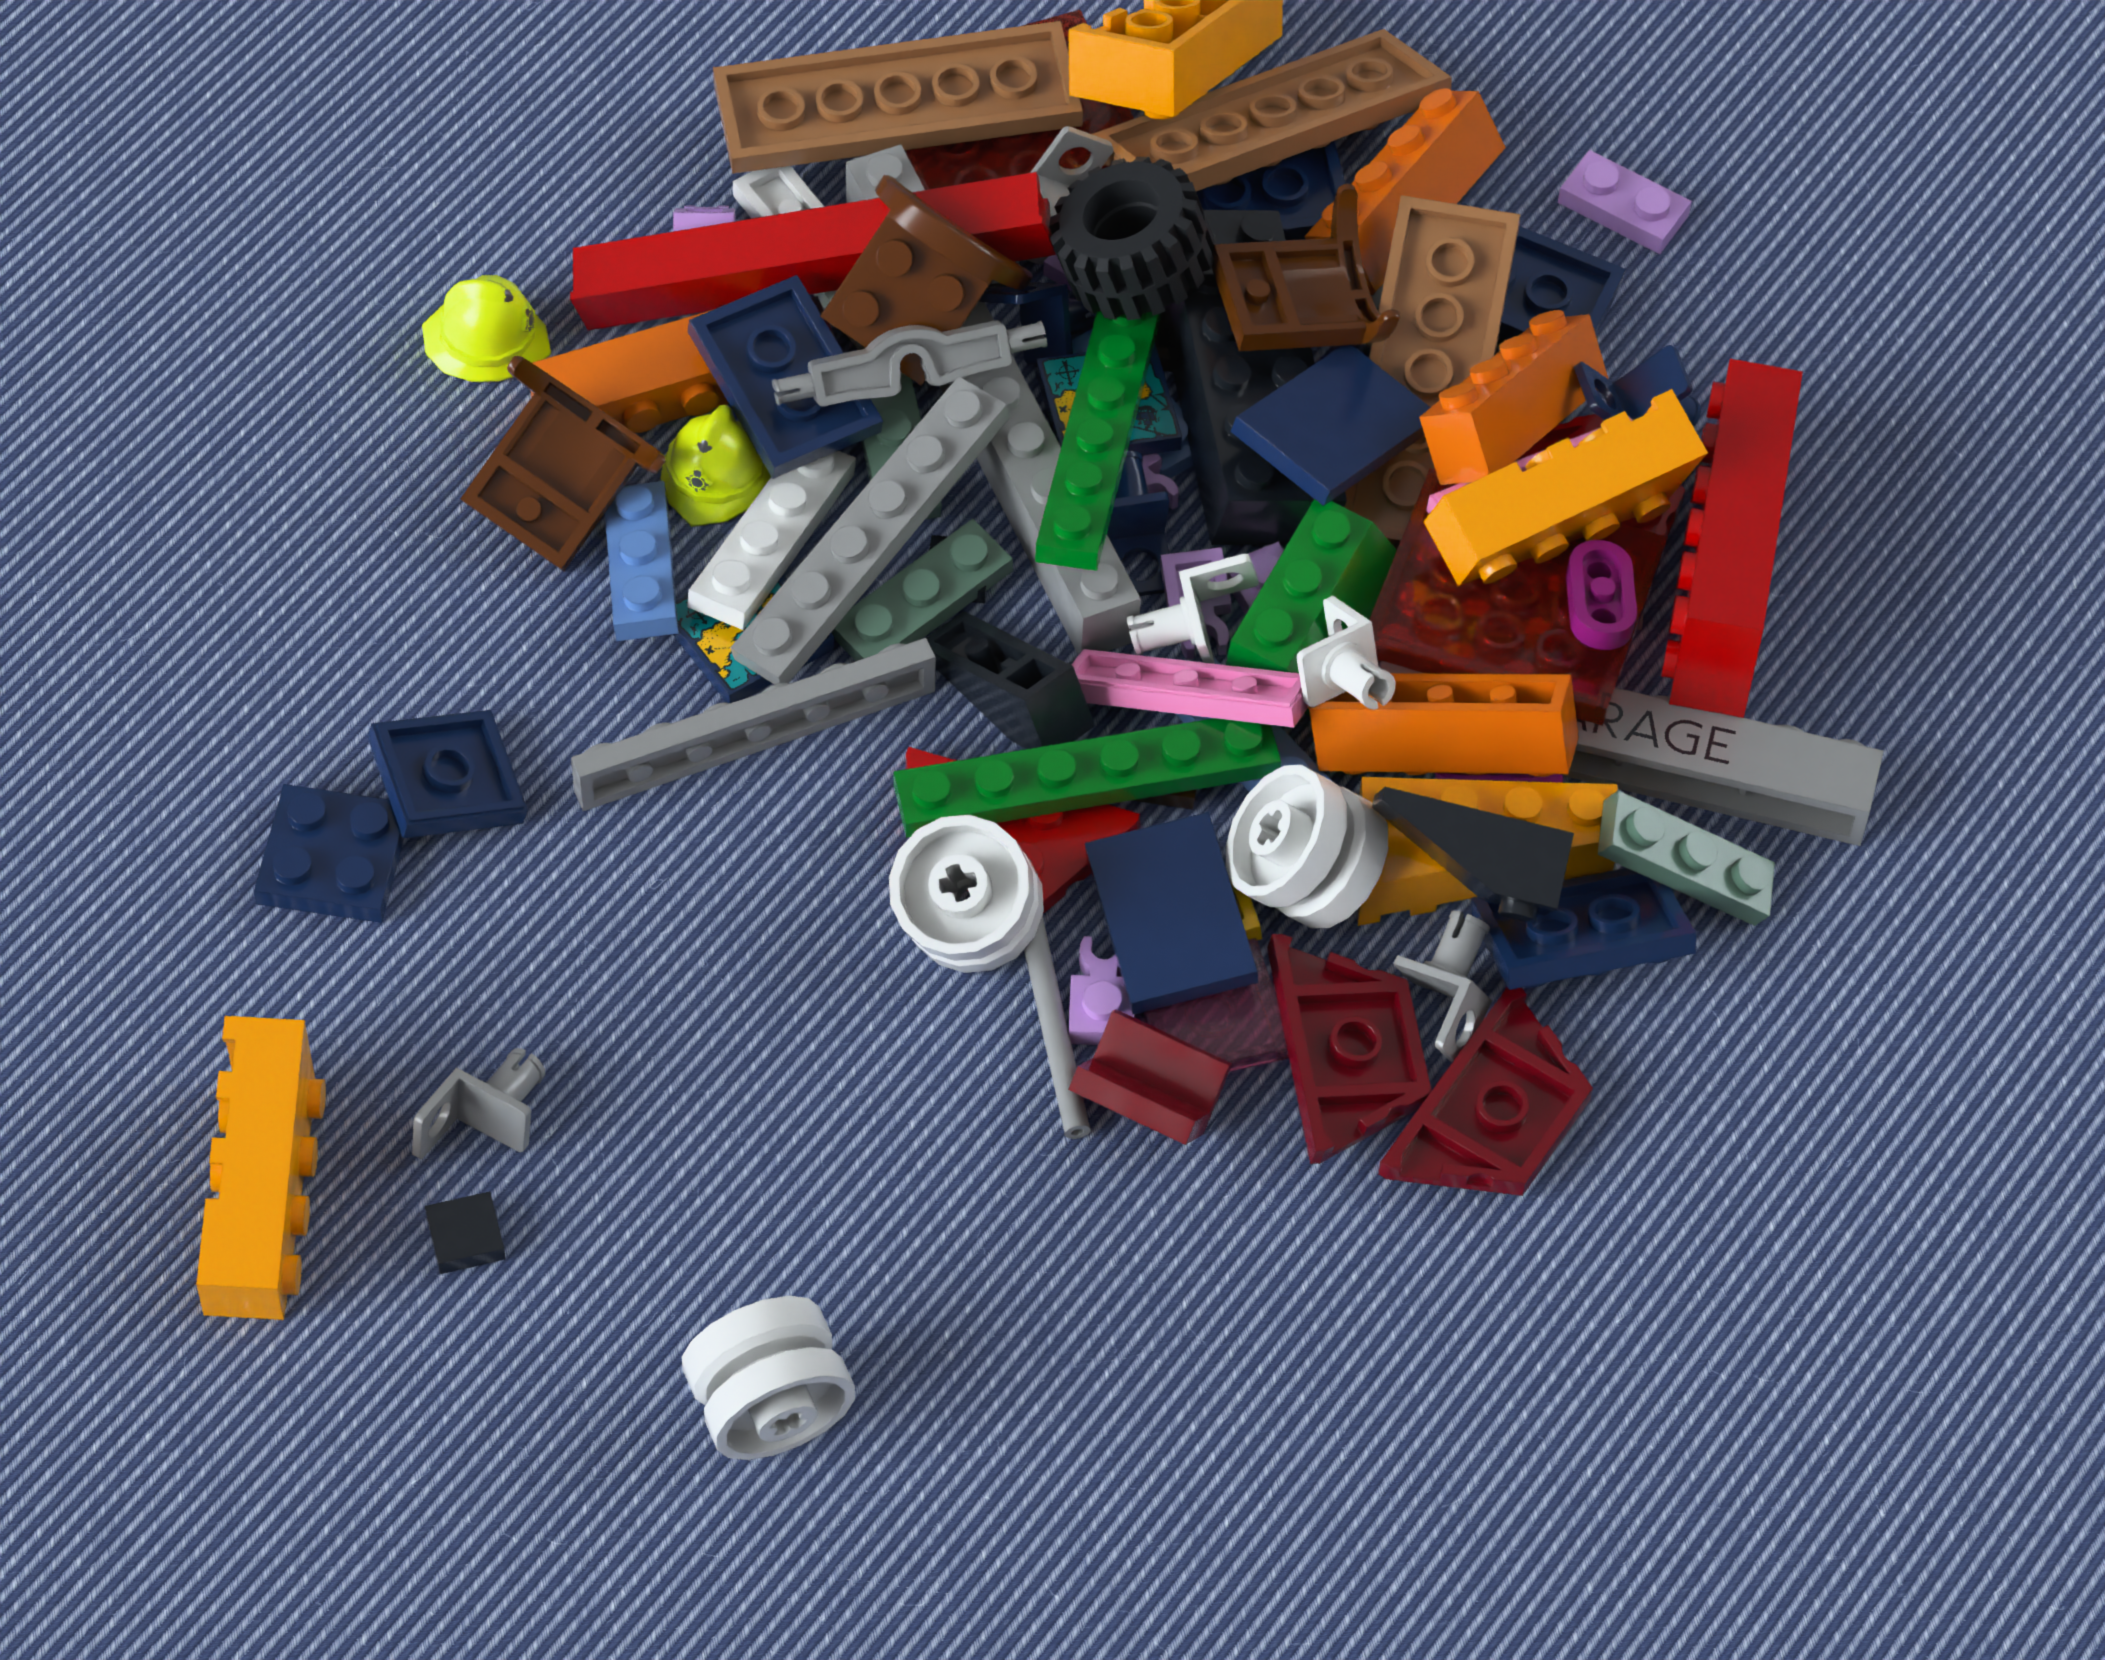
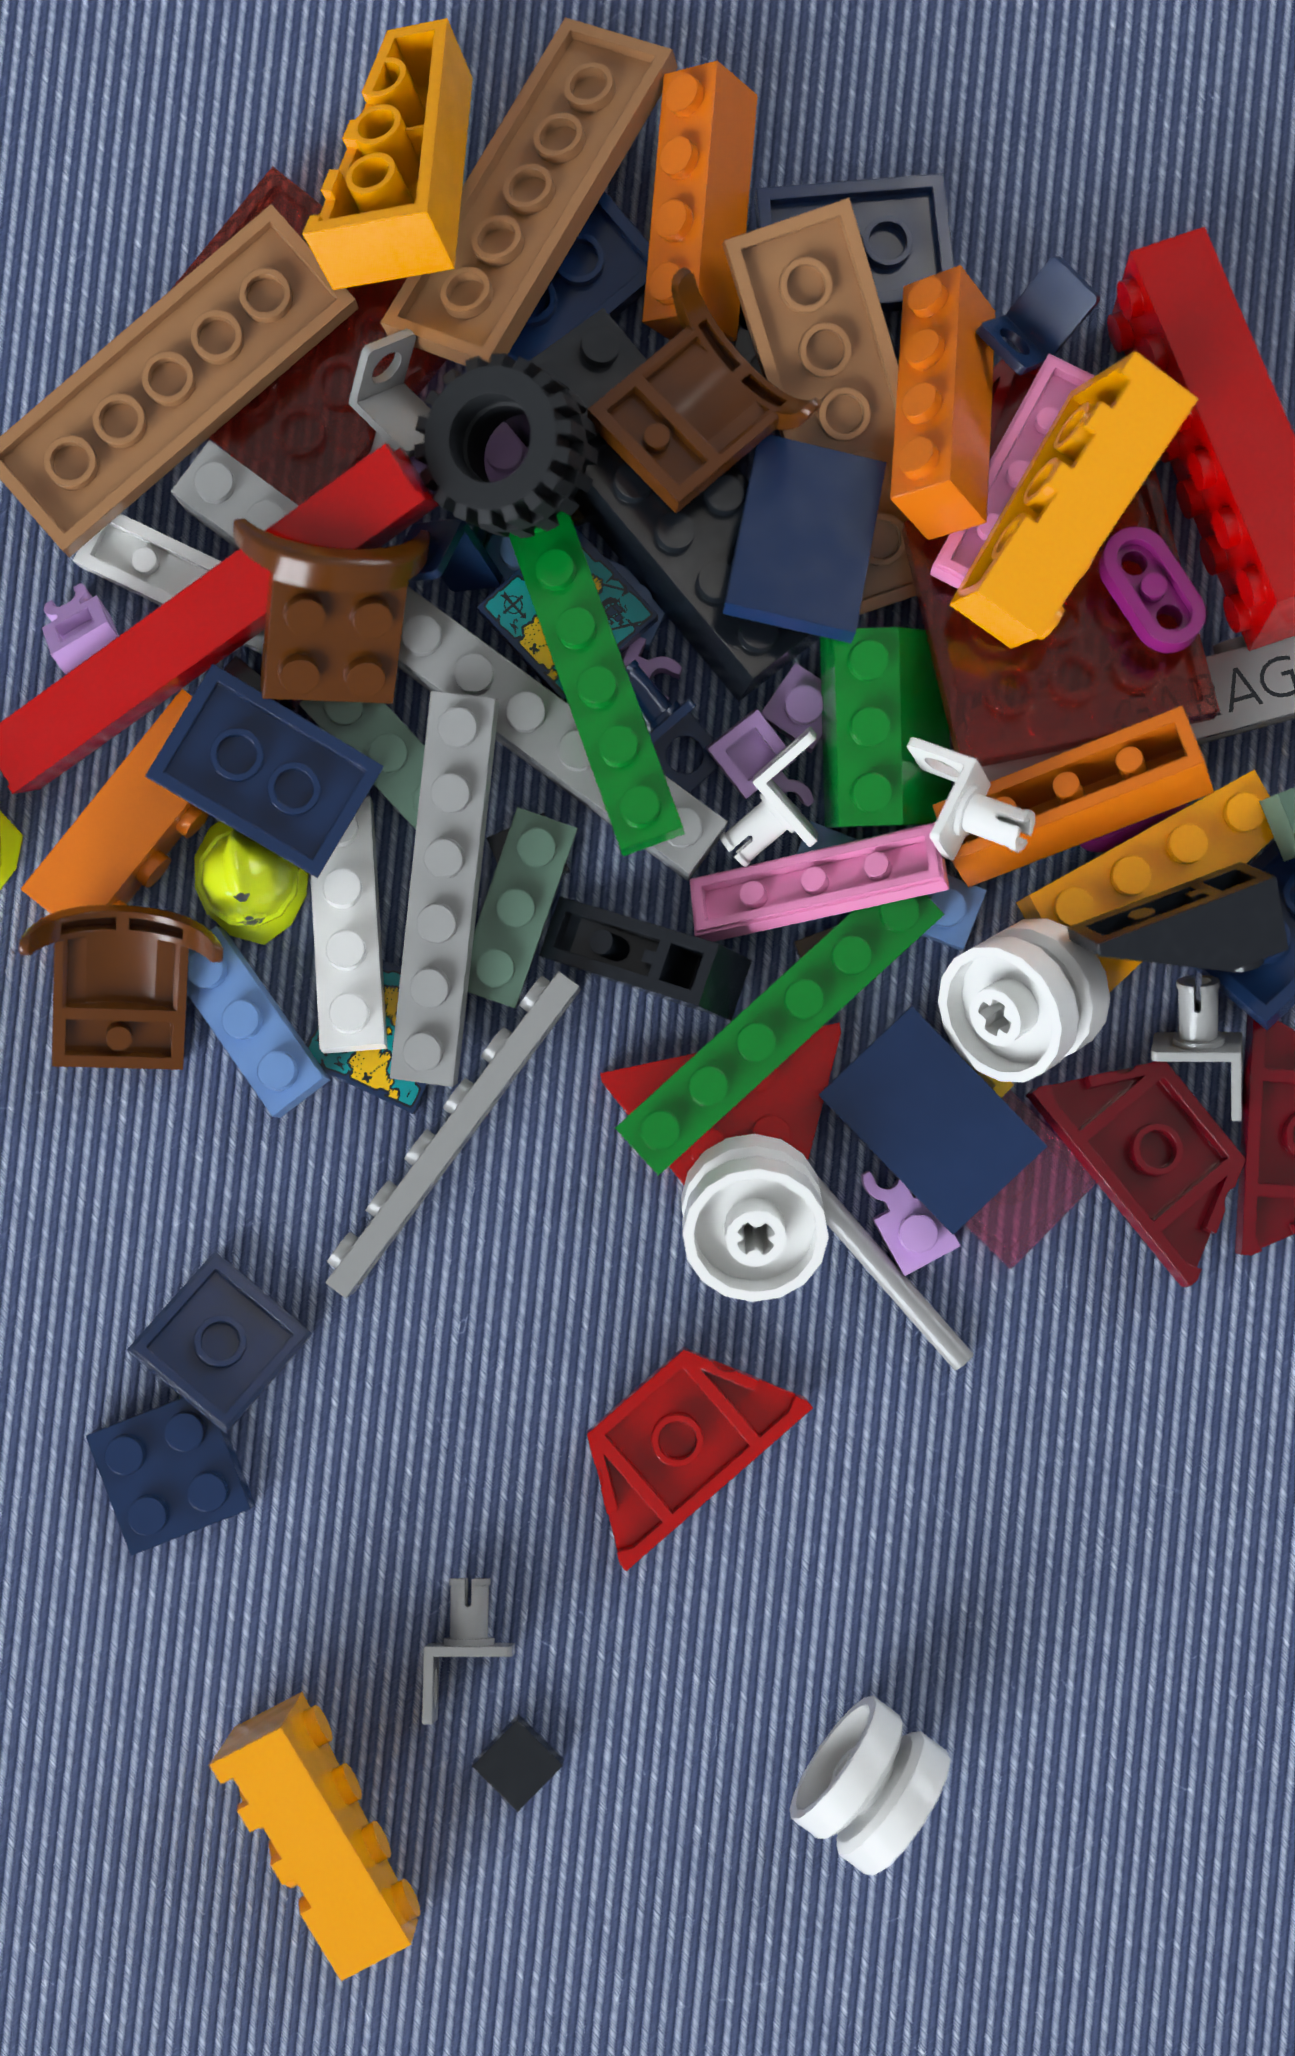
camera: 25 degrees left, 30 degrees up
(785, 1056) = (682, 1443): none -> red wing
(877, 372) = (403, 676): light grey piece -> none
(1152, 1078) = (1006, 1294): dark red panel -> none
(1624, 201) = (891, 87): lavender plate -> none

